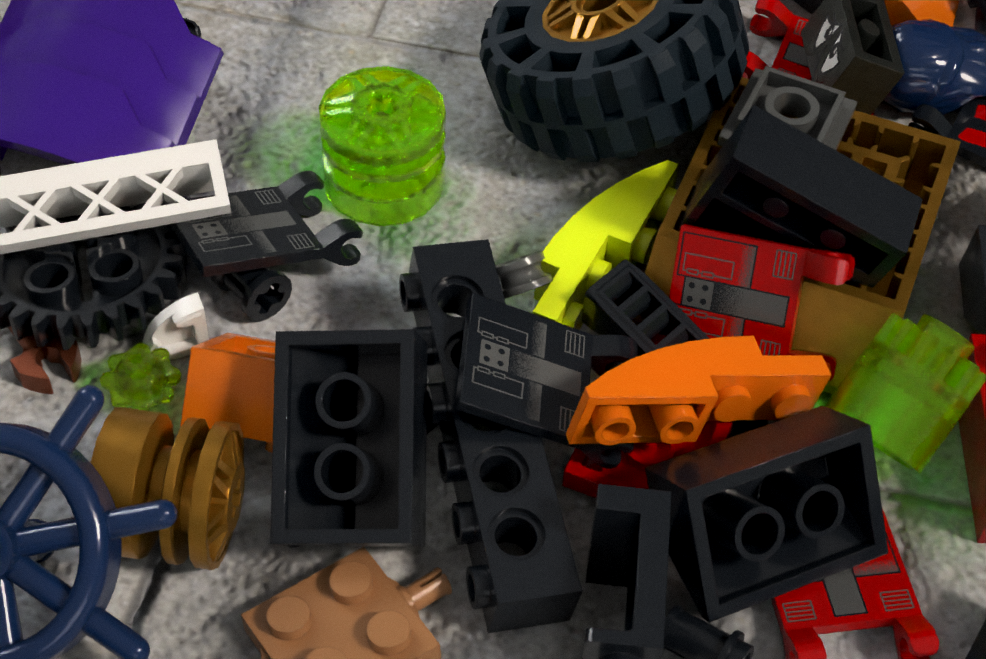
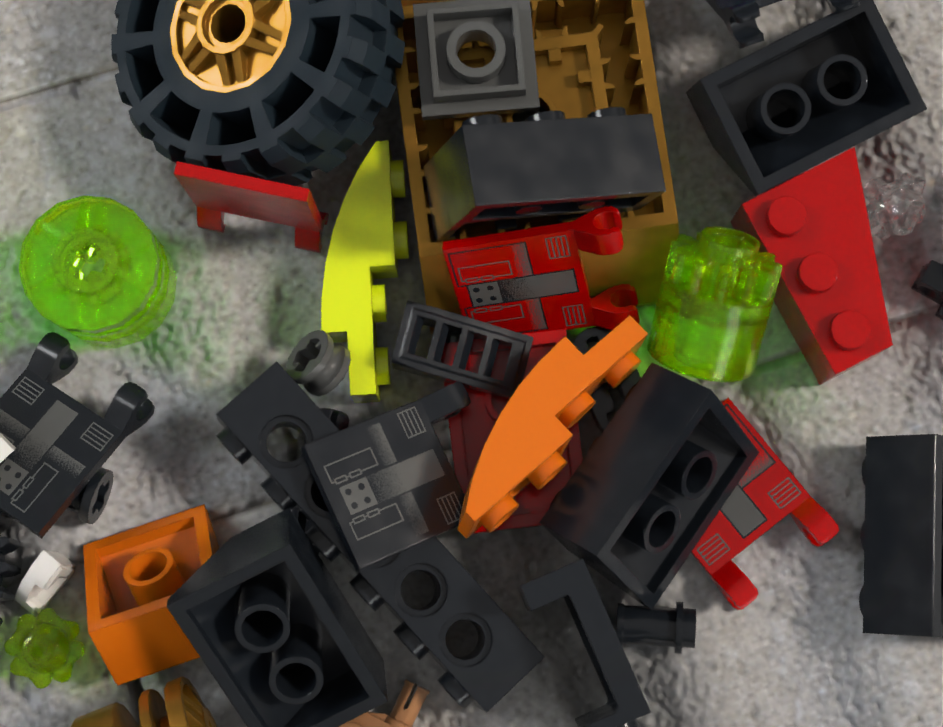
camera: 25 degrees left, 30 degrees up
(543, 131) = (227, 192): none -> red flag

